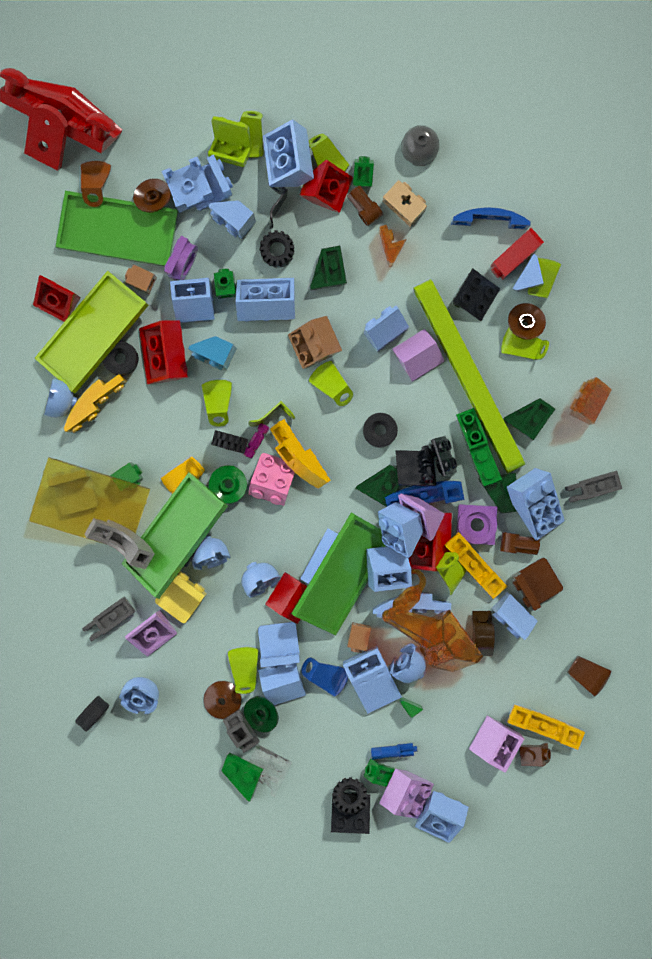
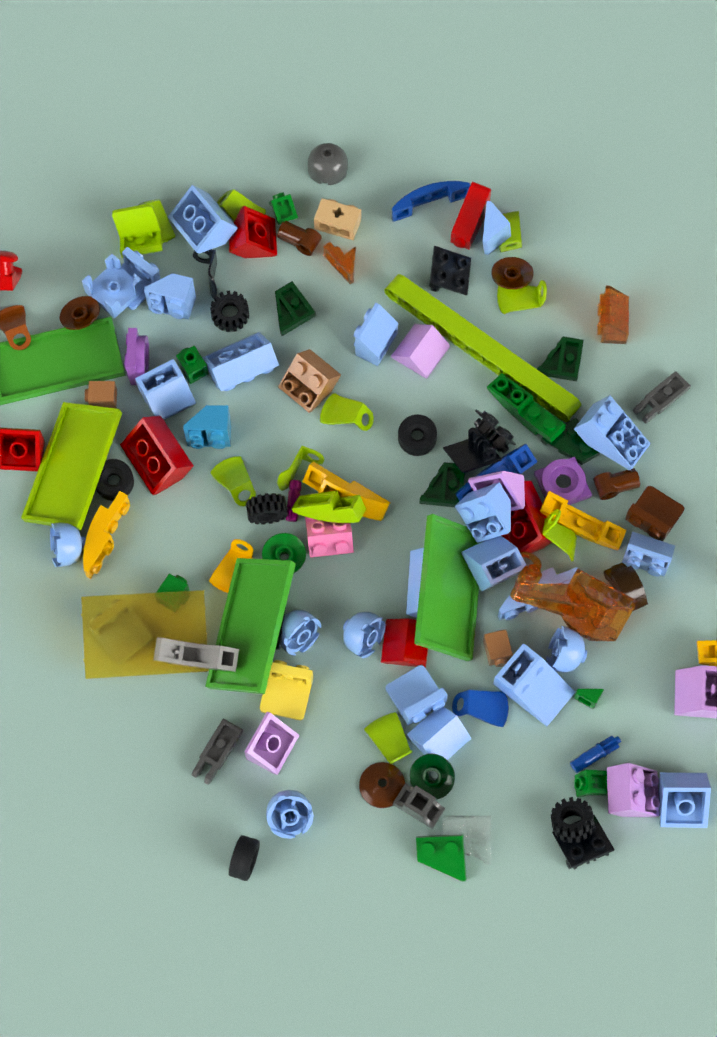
camera: 25 degrees left, 20 degrees down
(279, 465) = (330, 507): none -> lime slope

